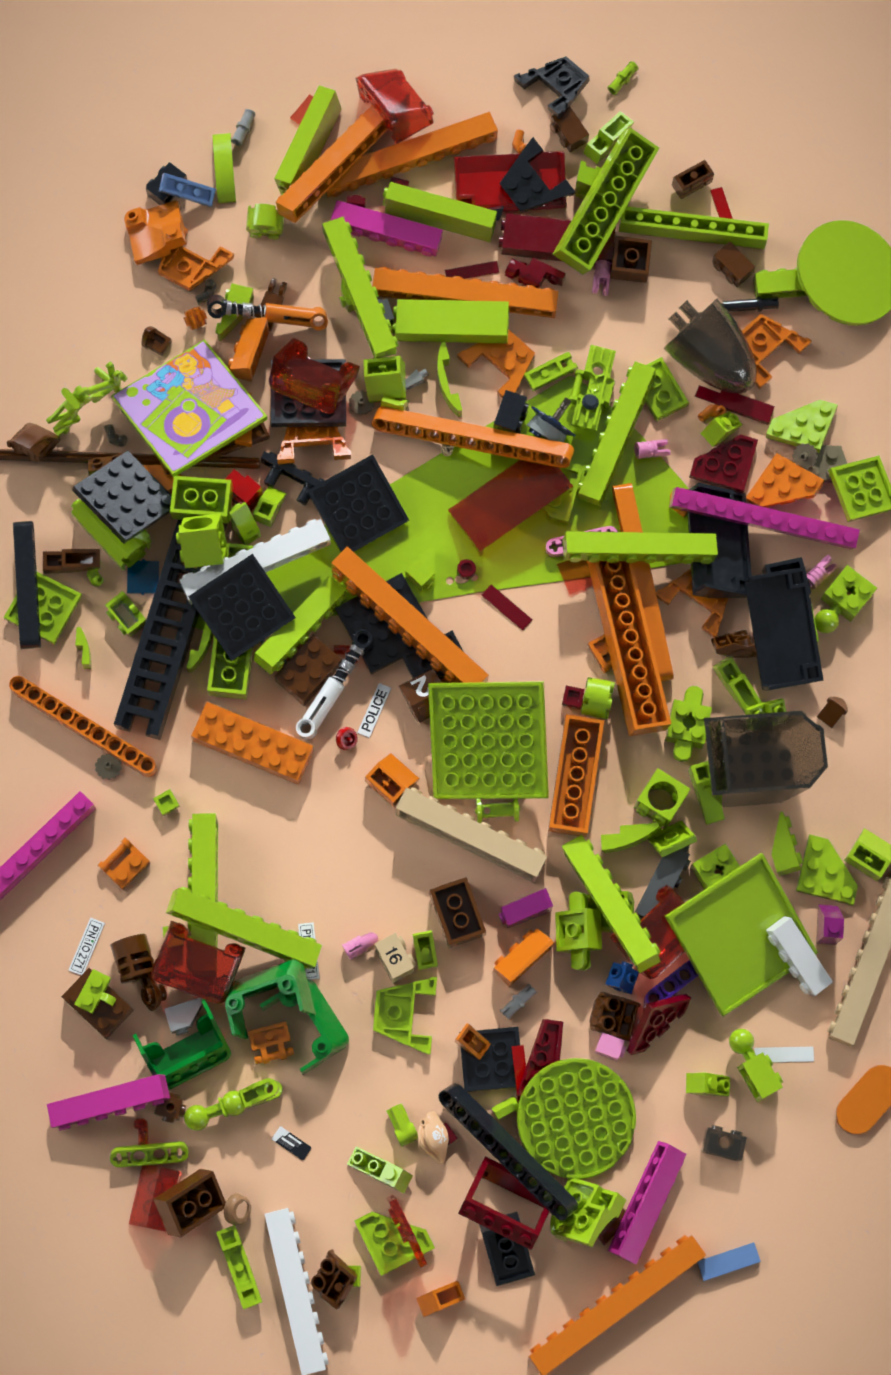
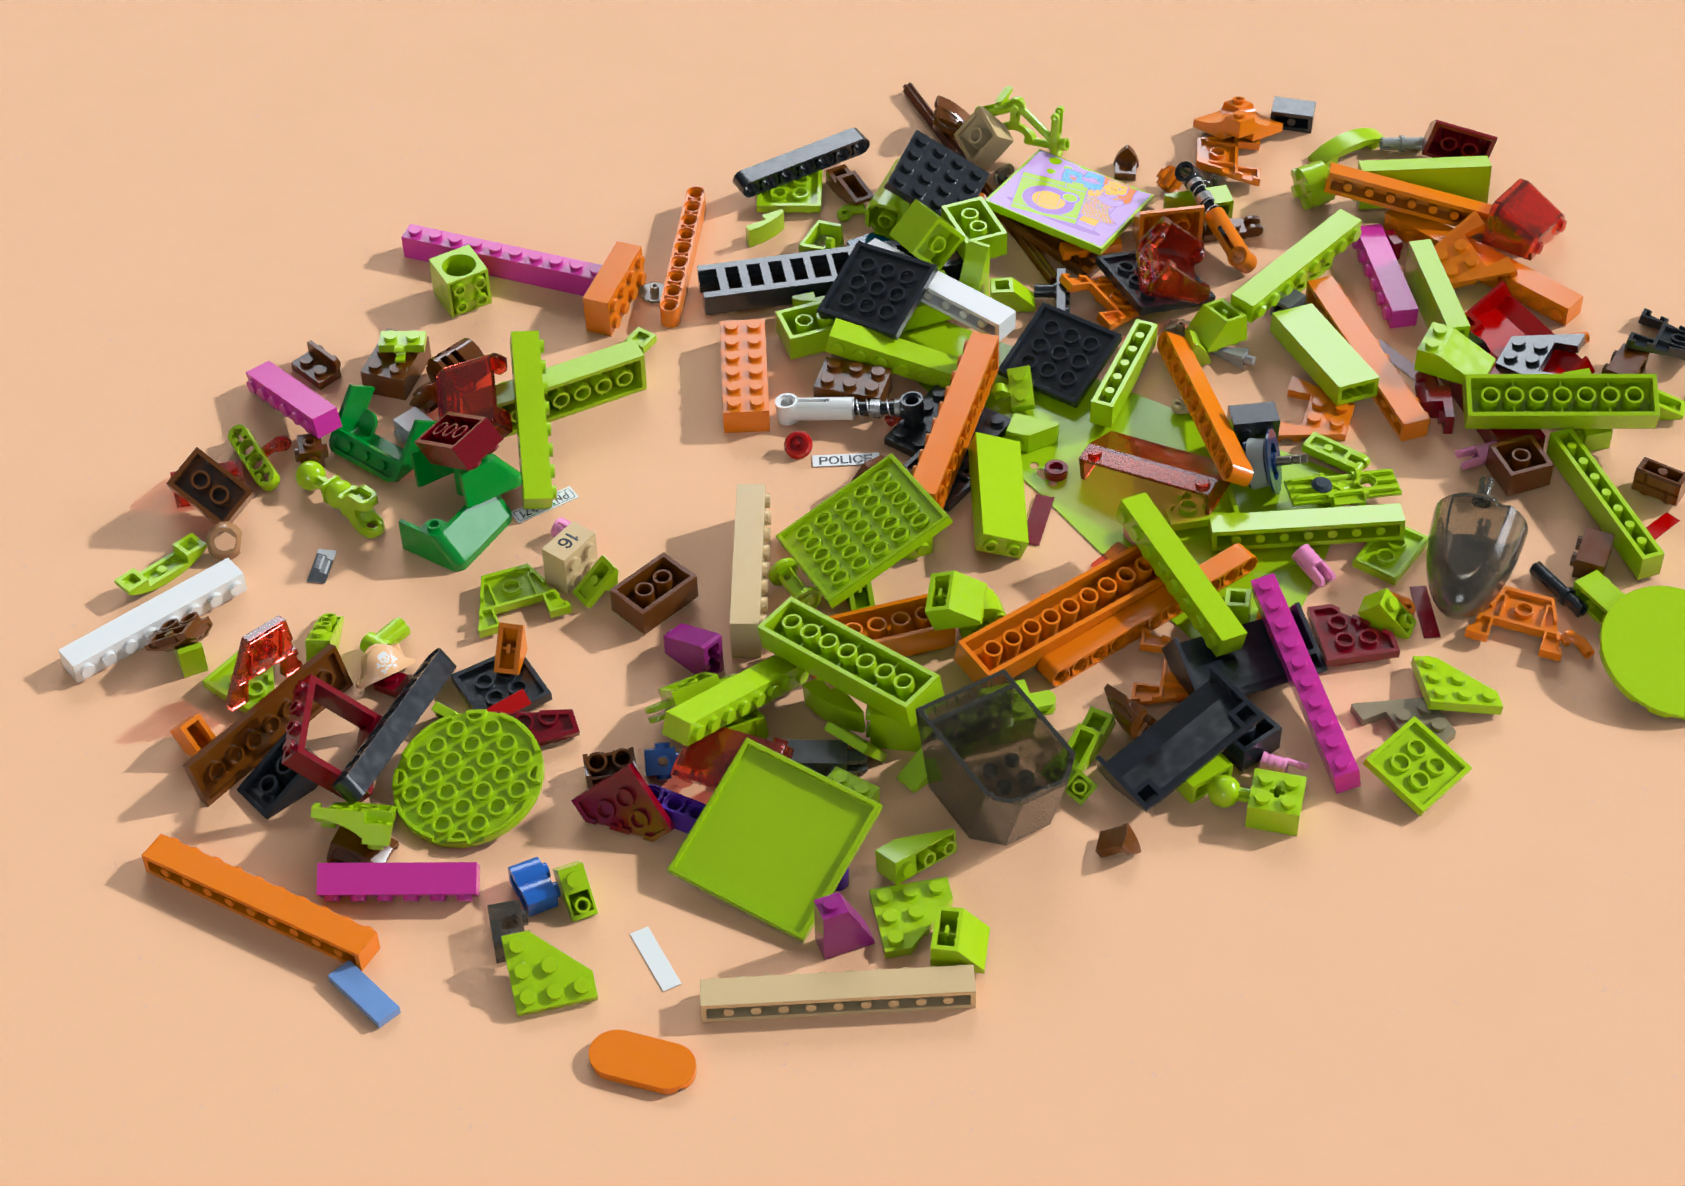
camera: 70 degrees right, 30 degrees down
(16, 902) = (460, 280): none -> lime brick
(61, 1066) = (317, 366): none -> reddish brown bracket
(81, 433) = (983, 138): none -> tan slope
(86, 946) = (443, 344): white sticker -> none
(107, 801) = (614, 288): none -> orange brick
(128, 868) = (560, 342): orange plate -> none
(187, 190) = (1298, 124): medium blue tile -> none
(244, 489) = (1011, 264): red brick -> none
(268, 1037) = (428, 500): orange plate -> none
(270, 998) = (459, 441): none -> dark red brick
(277, 92) = (1455, 141): none -> dark red slope
(374, 551) = (1019, 389): none -> lime plate
(390, 779) = (781, 484): orange slope -> none
(400, 470) = (1123, 373): none -> lime brick
(407, 169) = (1461, 259): none -> orange wing
(452, 400) = (1275, 365): lime slope -> none
(453, 1237) = (256, 732): none -> reddish brown plate
(482, 625) = (998, 495): none -> lime brick
(513, 240) = (1451, 355): none -> lime slope
(518, 1001) = (582, 686): light grey pin -> none
(522, 956) = (632, 668): orange slope -> none
(598, 711) = (955, 600): none -> lime slope
(610, 1047) = (571, 780): bright pink brick -> none
(625, 813) = (849, 661): none -> lime brick
(665, 517) = (1239, 603): none -> lime slope
(691, 1111) = (533, 886): none -> blue brick
(746, 406) = (1433, 631): dark red tile -> none
(757, 1069) = (613, 920): lime brick -> none
(775, 1135) = (544, 976): none -> lime plate
(783, 484) = (1366, 692): orange plate -> none
(796, 323) = (1579, 641): none -> orange arm
(799, 956) = (781, 909): white brick -> none
(805, 455) = (1412, 695): dark tan piece -> none

